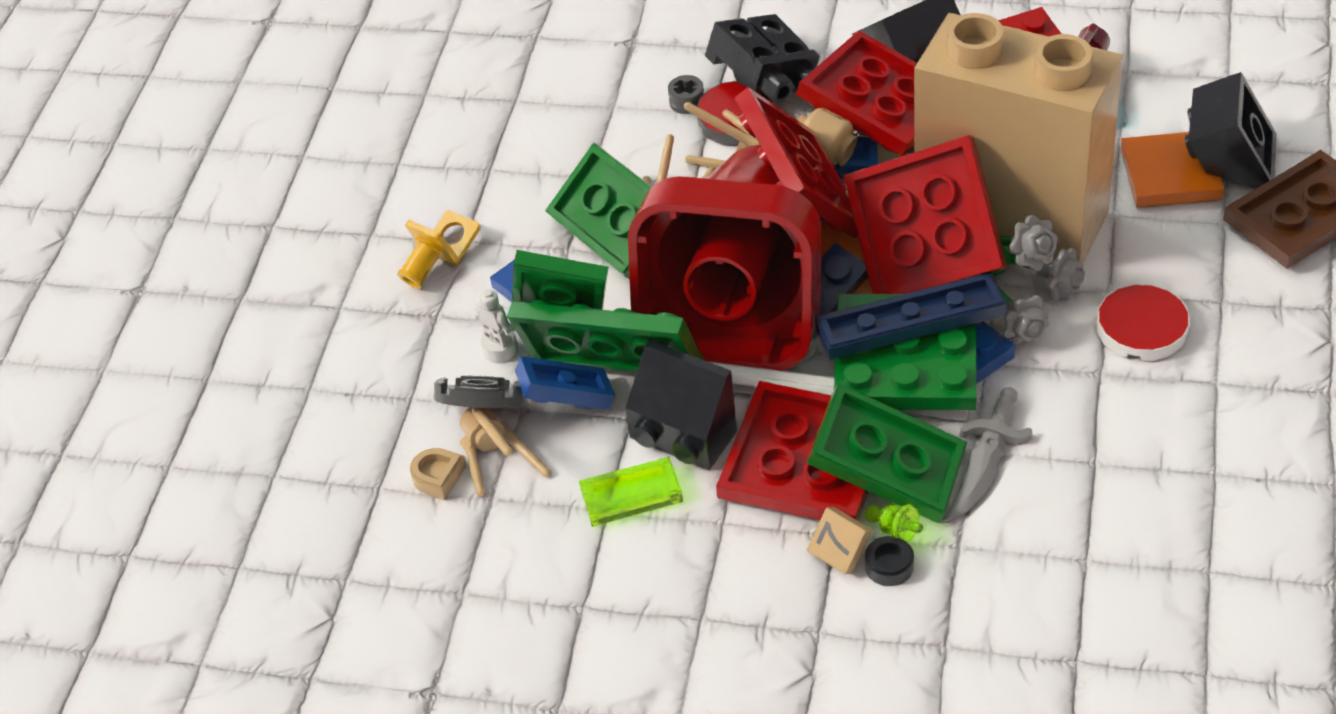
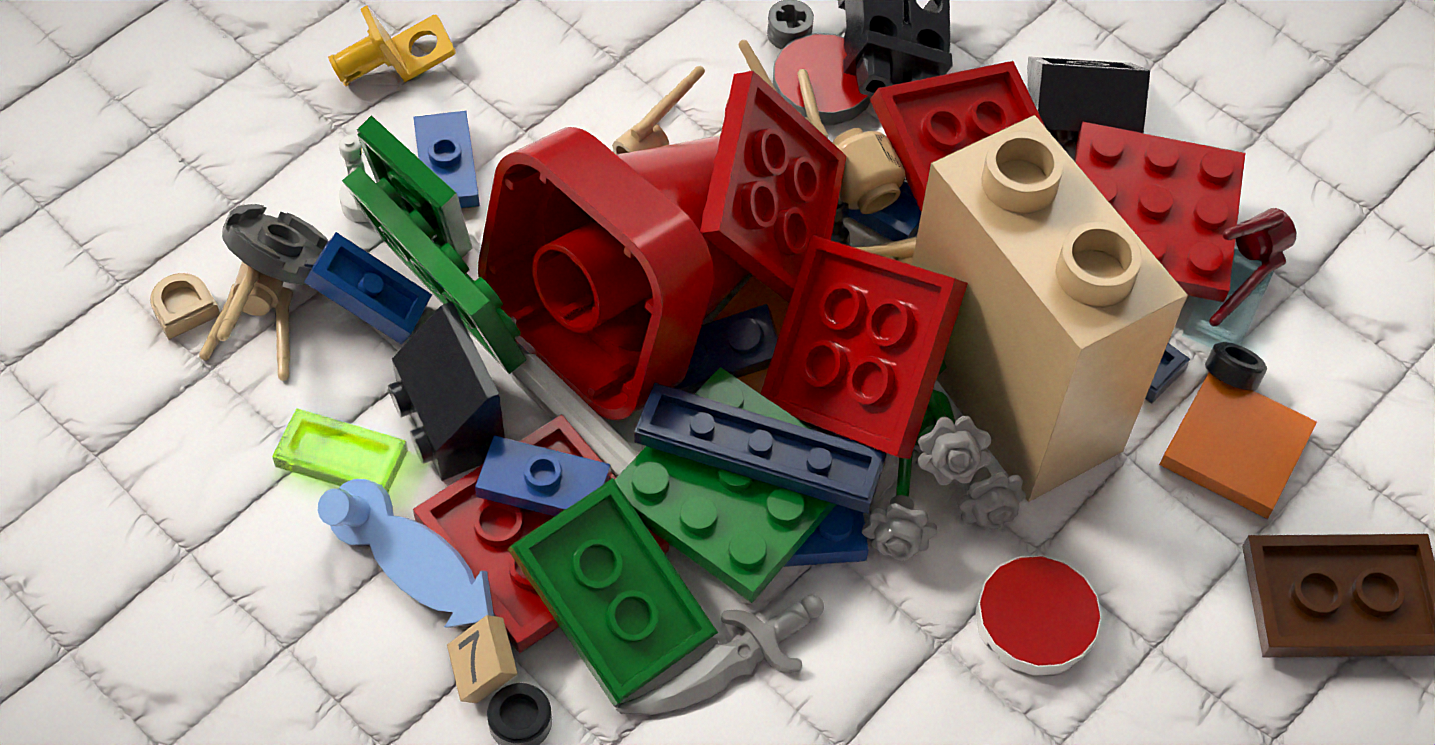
camera: 25 degrees right, 10 degrees up
(600, 205) = (593, 93): green tile -> none
(735, 512) = (407, 551): none -> light blue brick
(782, 418) = (537, 476): none -> blue plate
(899, 522) = (562, 677): clear neon green hair -> none
(1135, 127) = (1236, 366): none -> black tile
(1231, 132) = (1335, 448): black slope -> none

